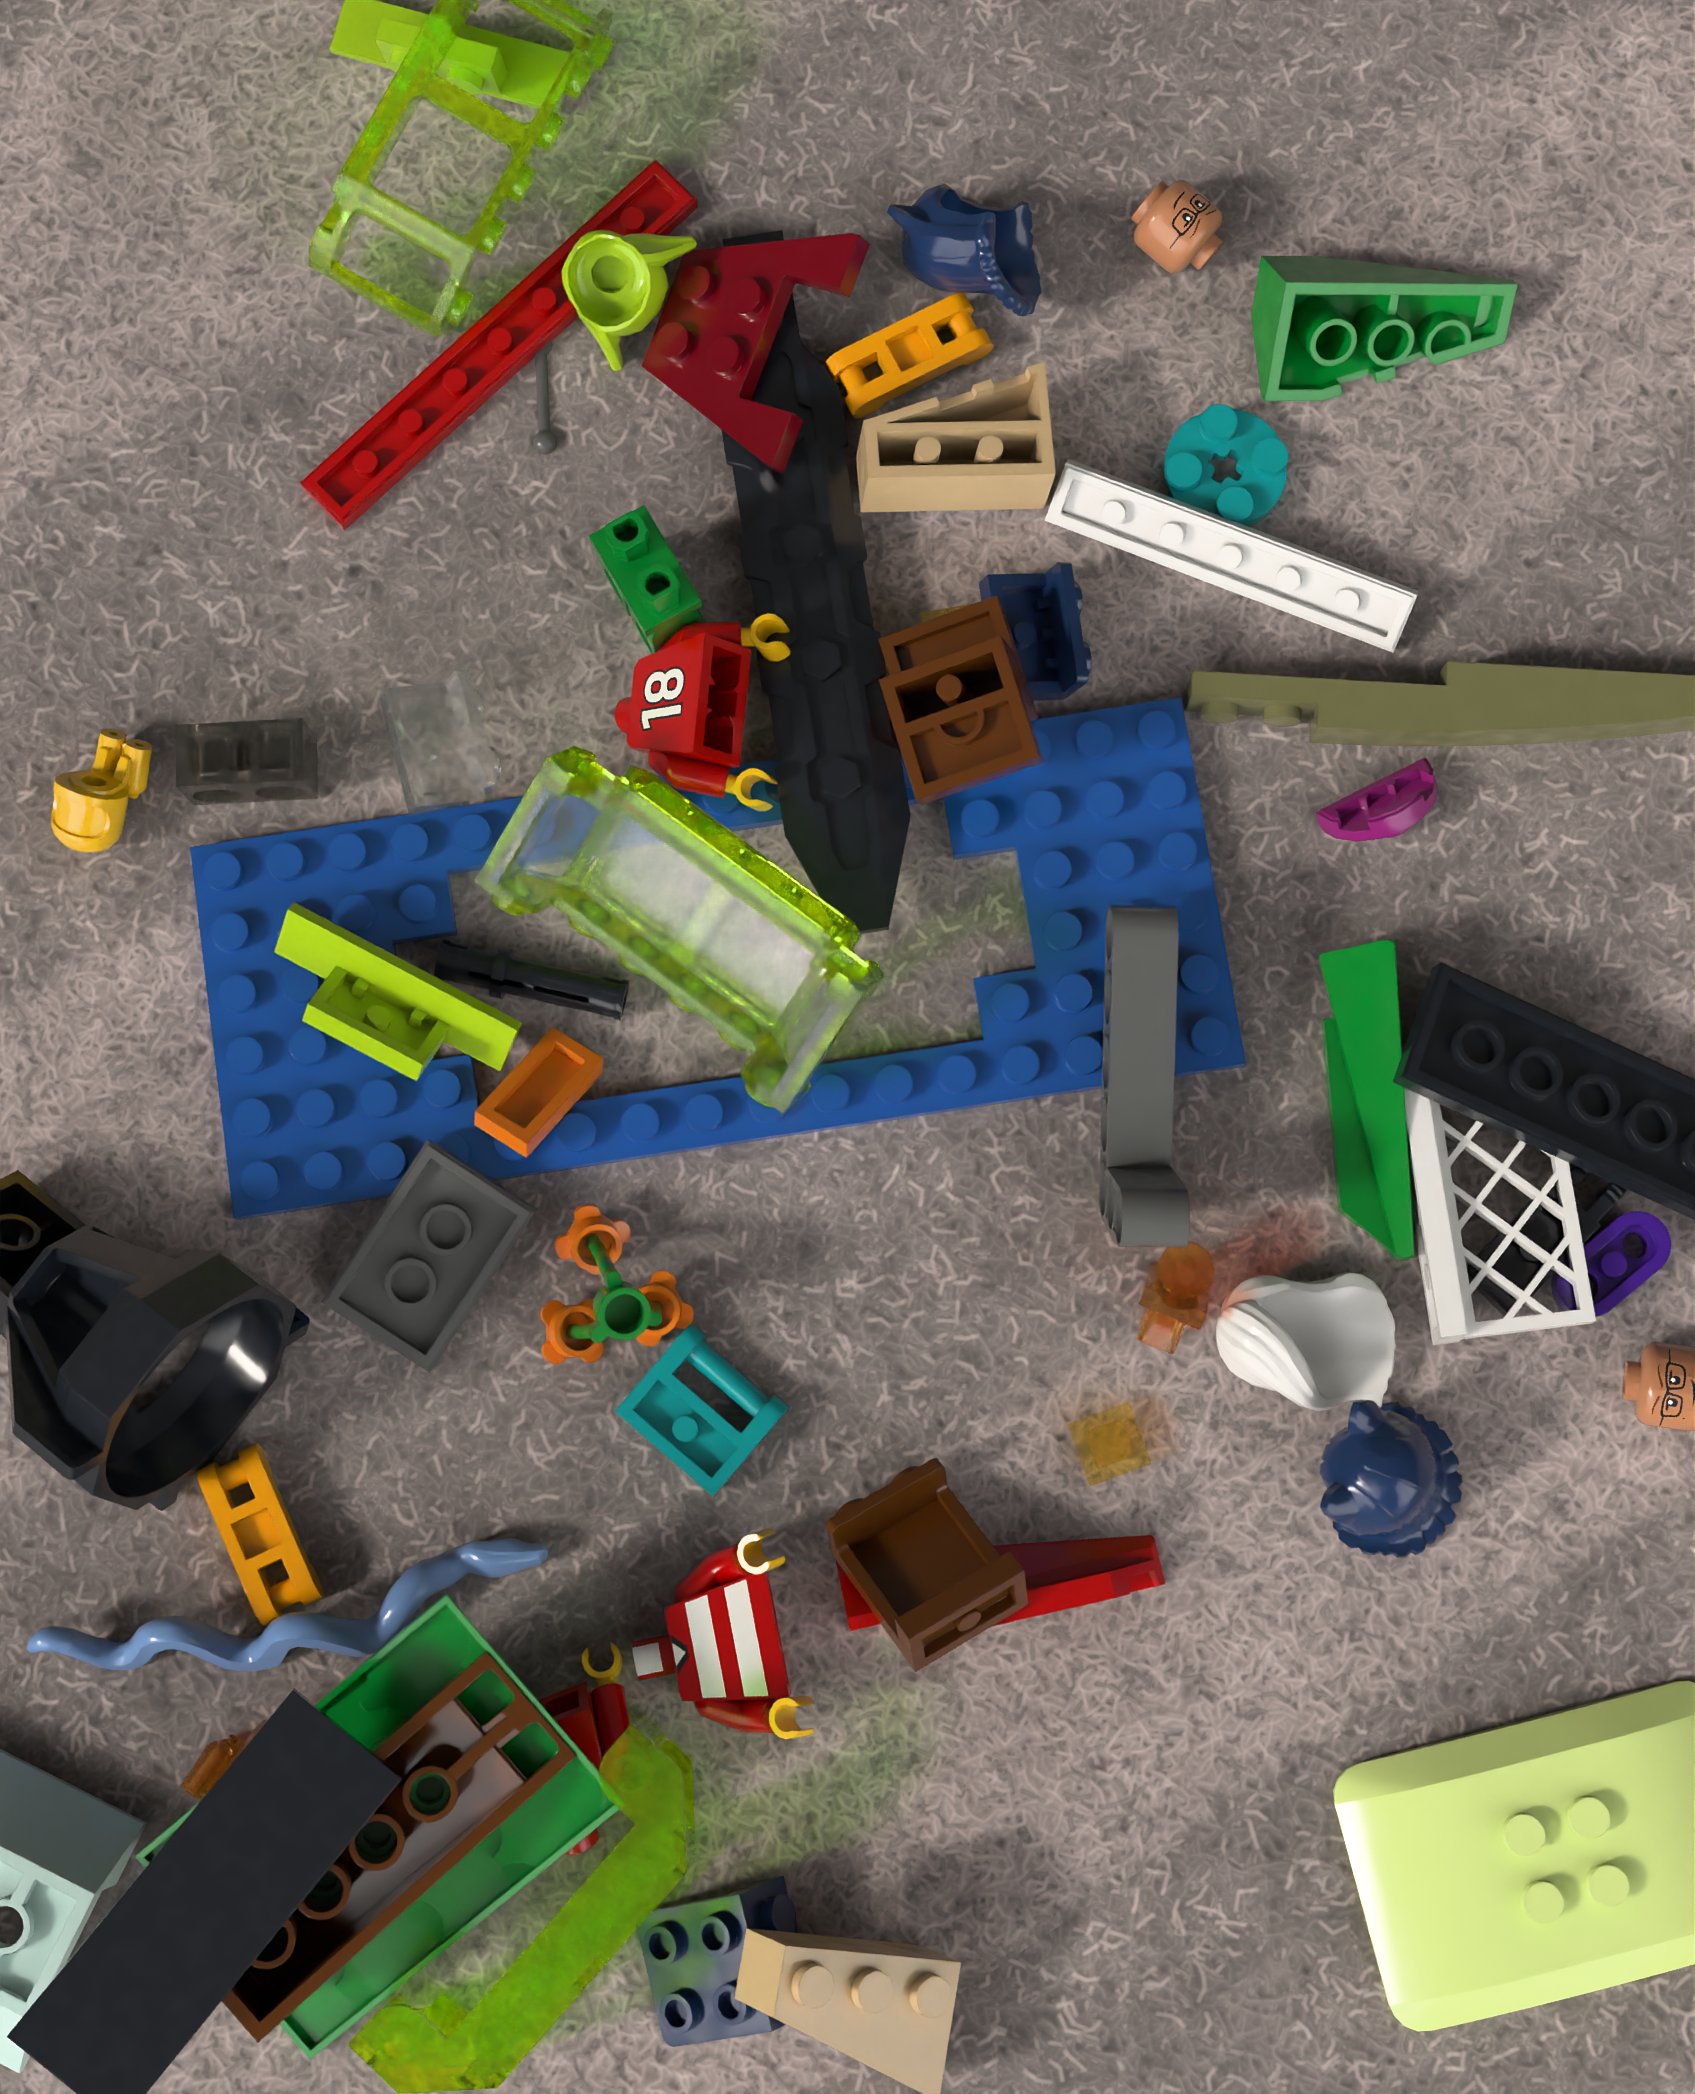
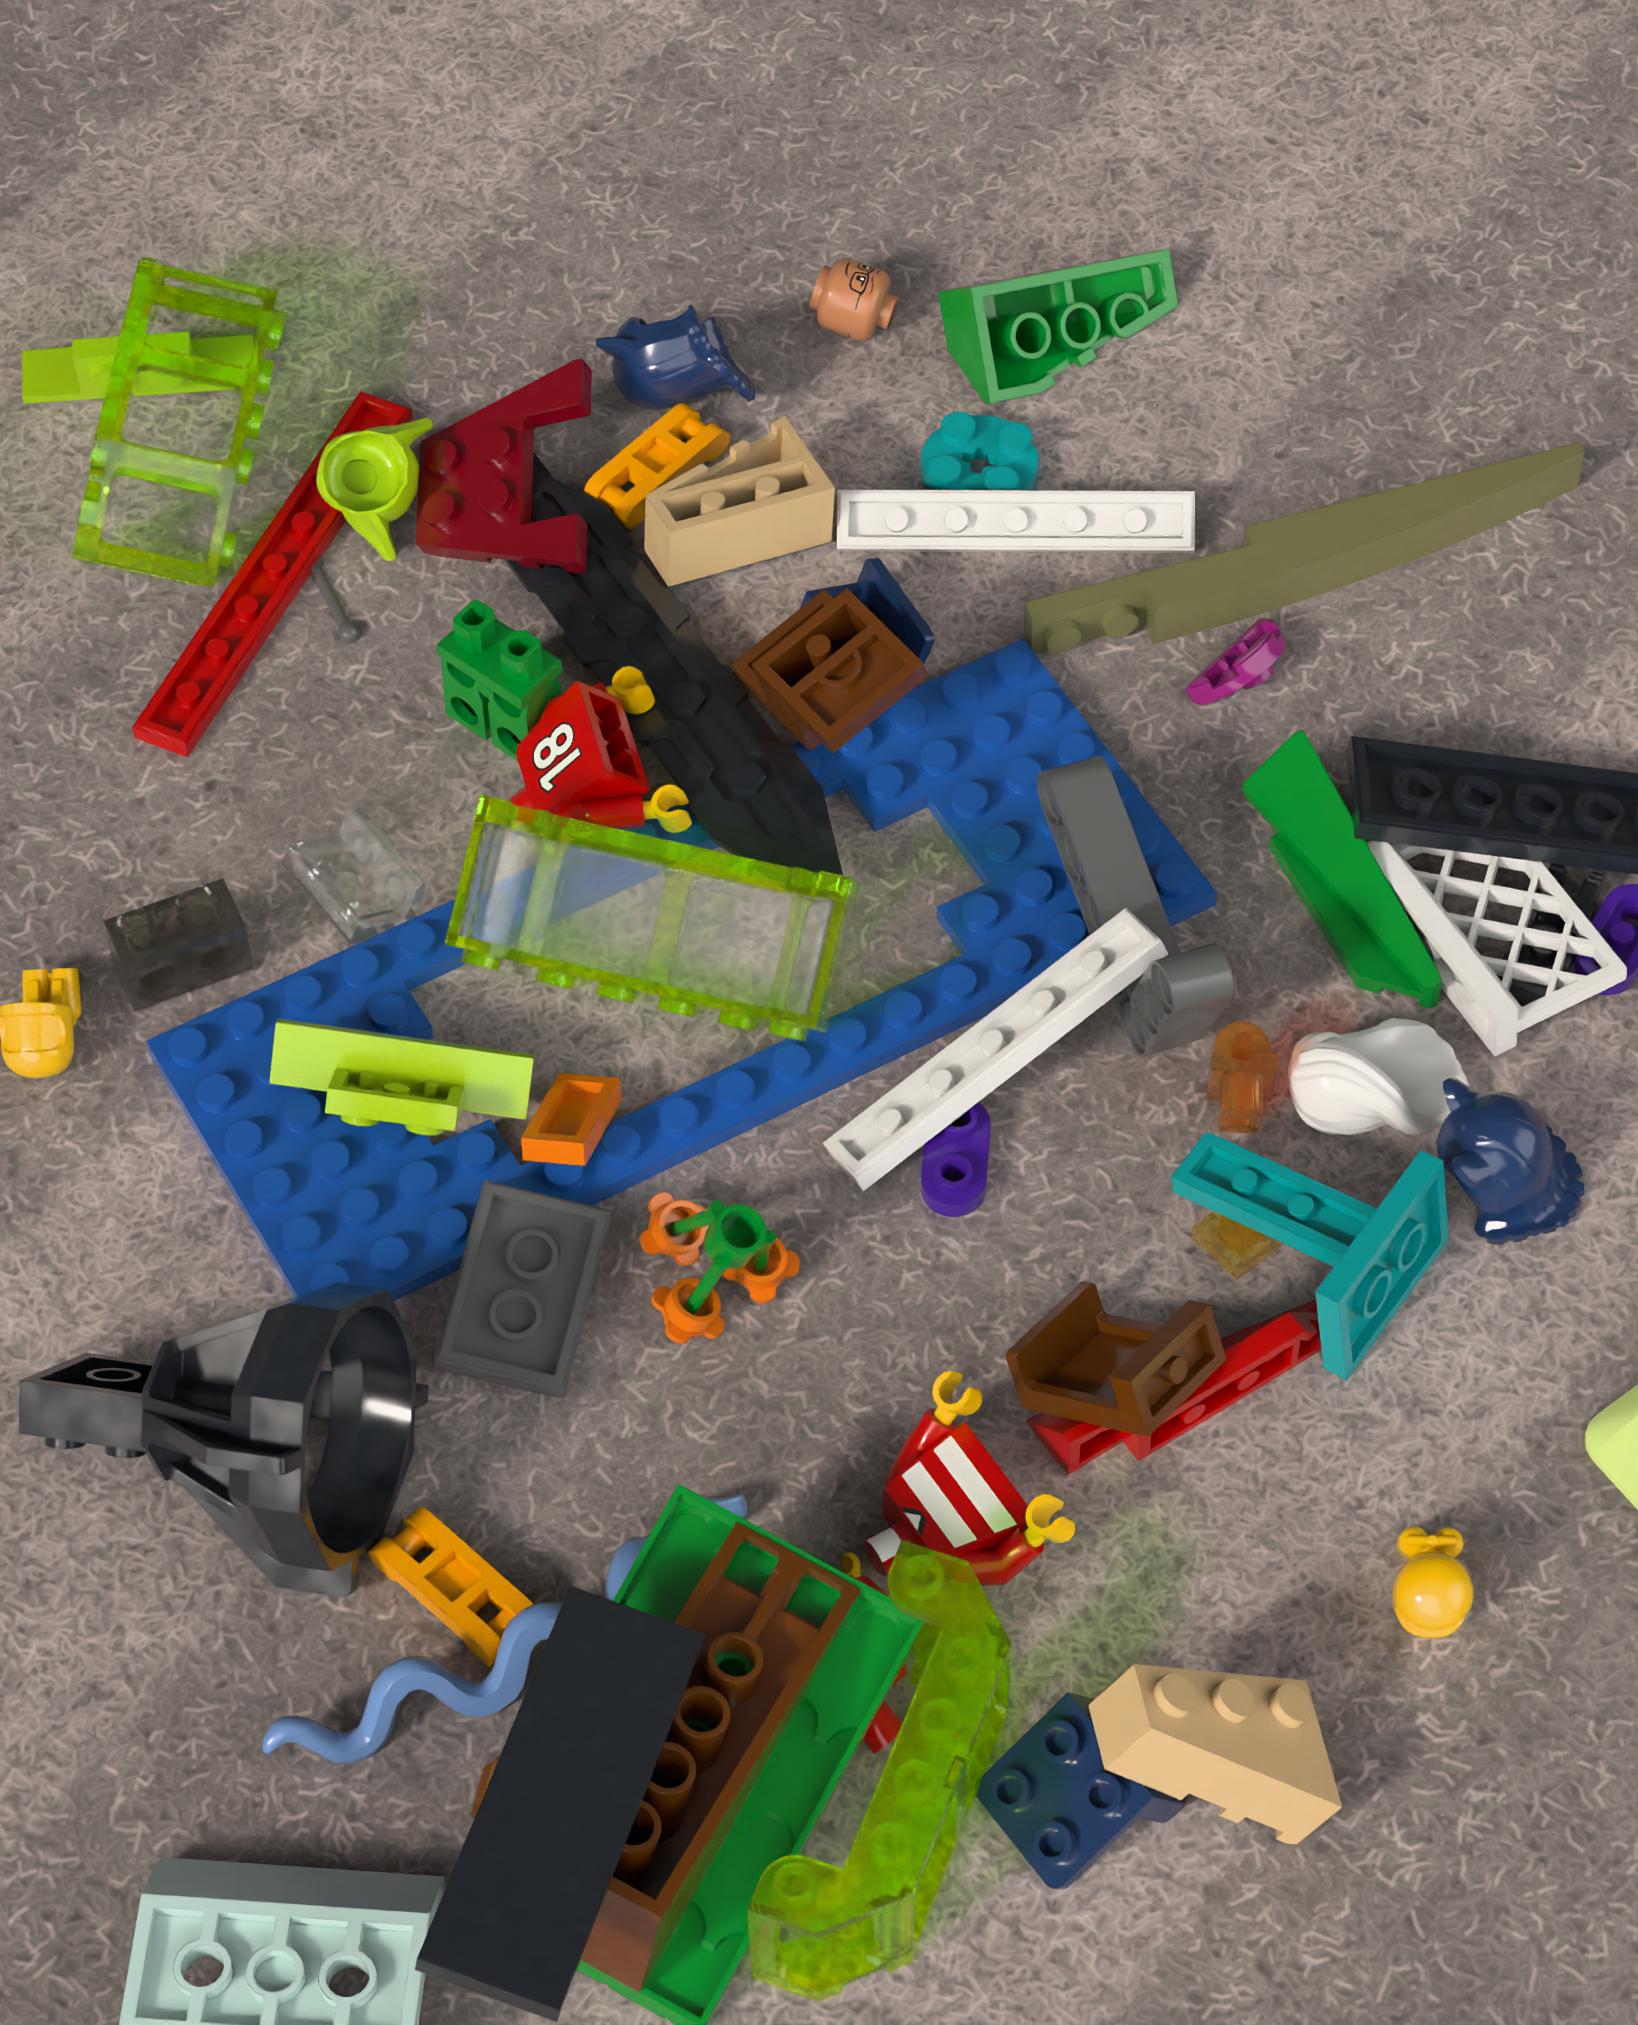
camera: 25 degrees left, 25 degrees down
(529, 979) = (599, 1031): black pin -> none
(687, 1426) = (835, 1349): teal plate -> none
(883, 1255) = (962, 1153): none -> dark purple plate
(958, 1176) = (994, 1049): none -> white tile
(1122, 1893) = (1431, 1587): none -> yellow piece
(1173, 1490) = (1372, 1250): none -> teal piece

